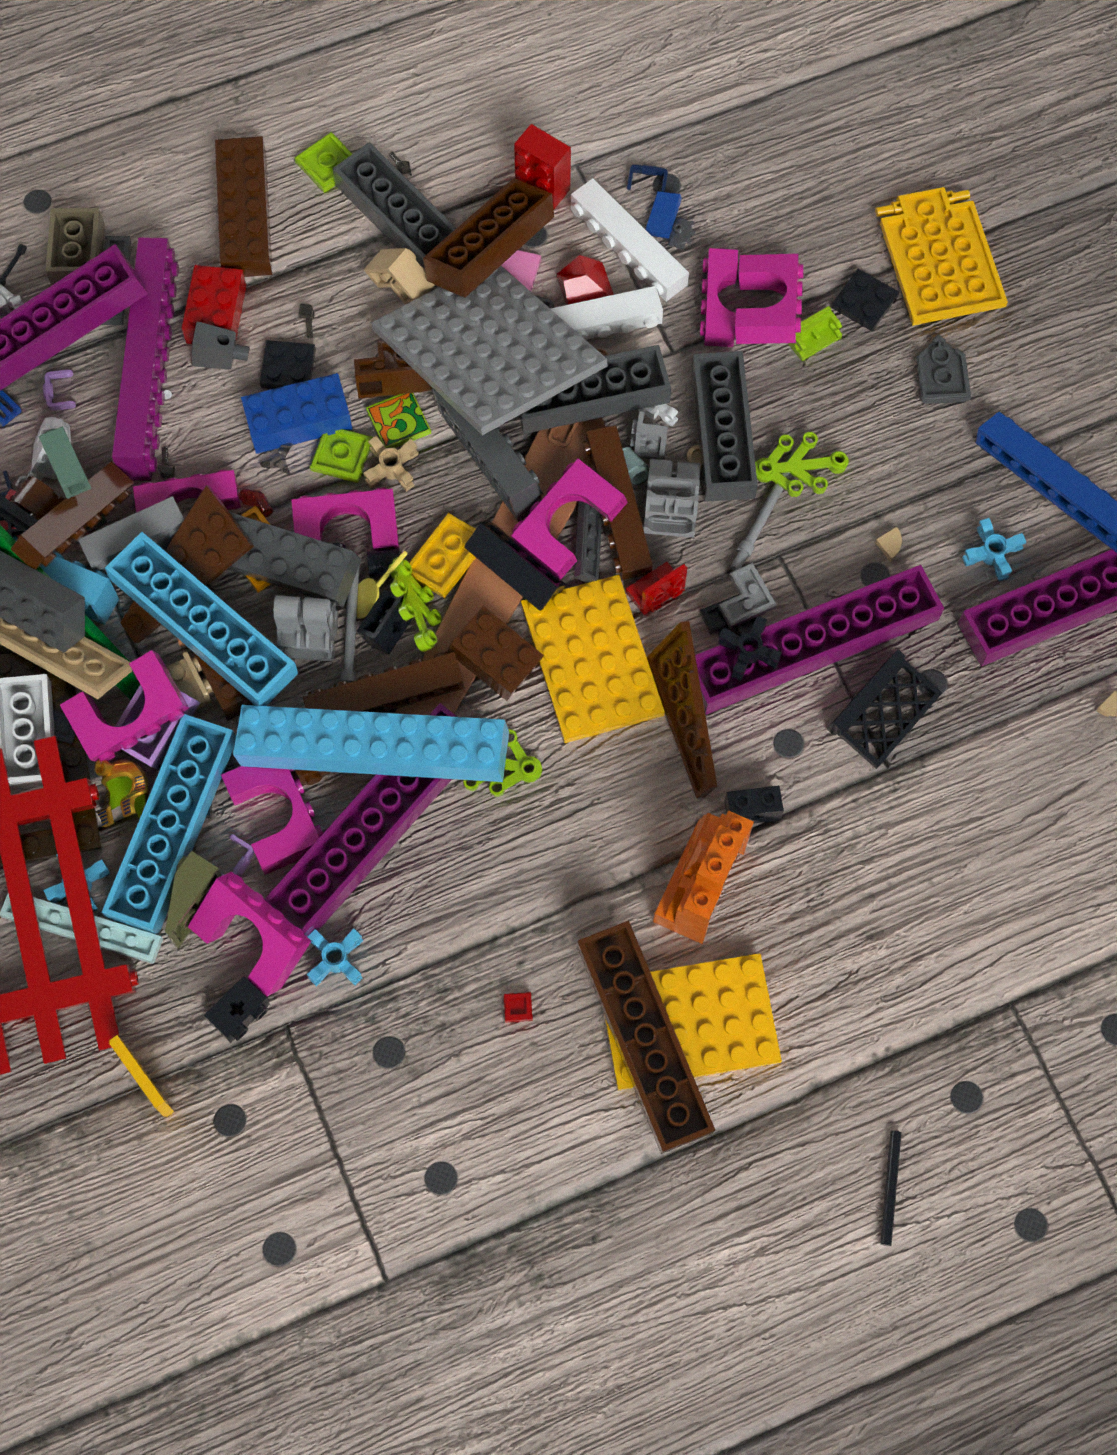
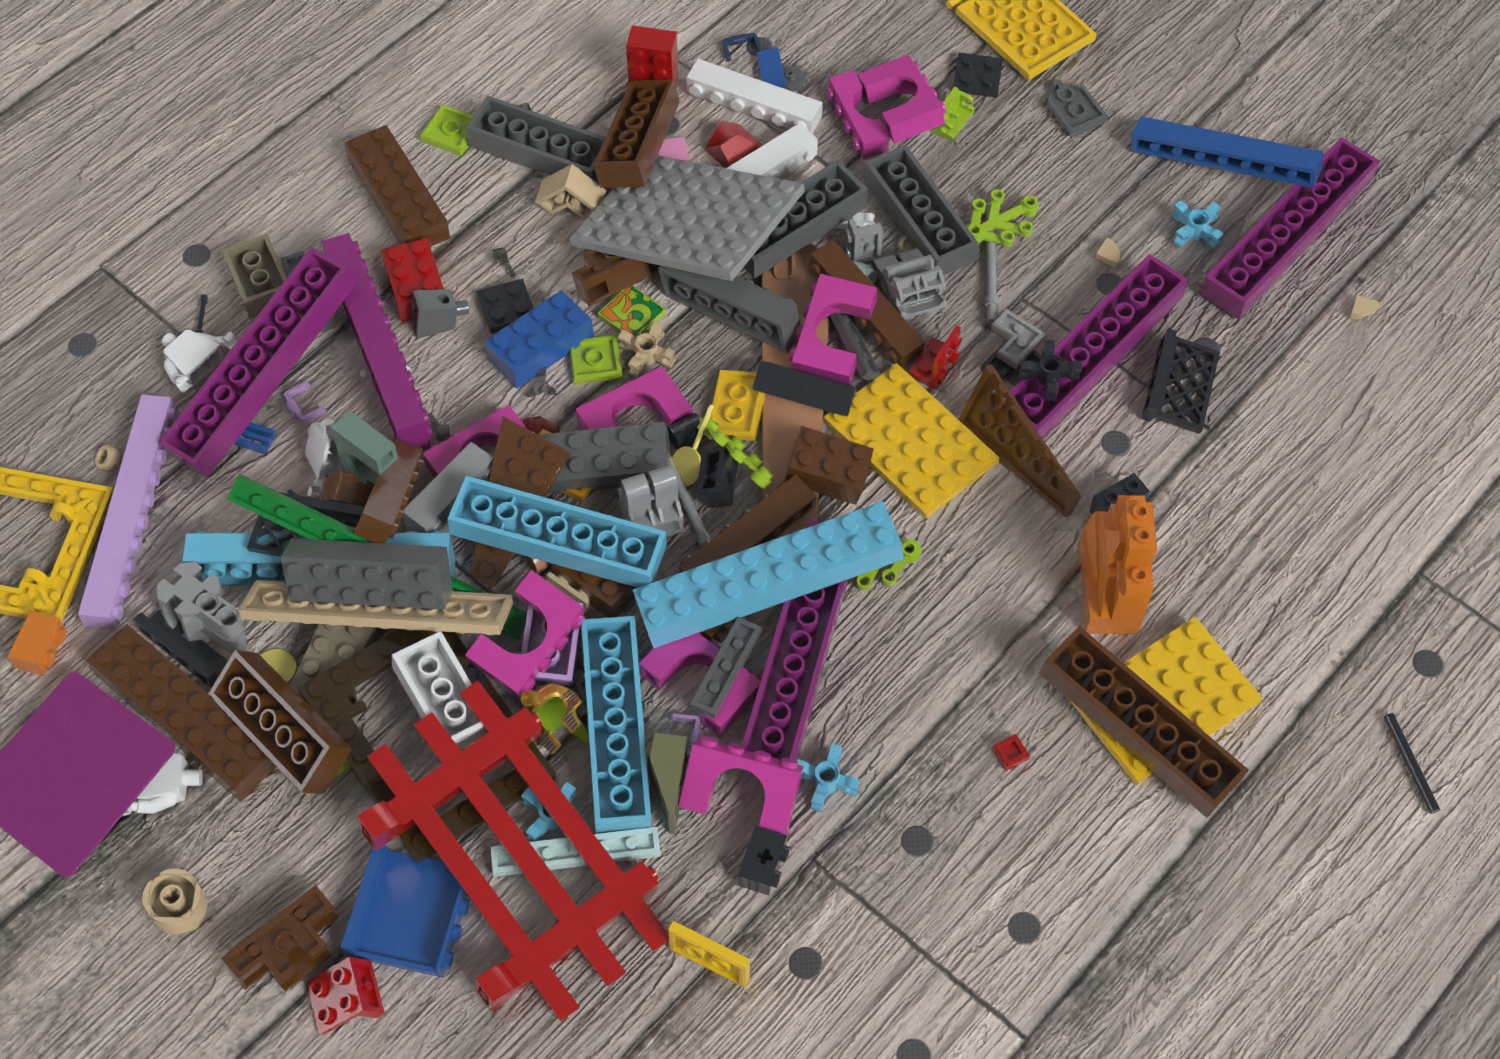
camera: 25 degrees left, 10 degrees down
(292, 814) = (726, 668): none -> dark grey plate

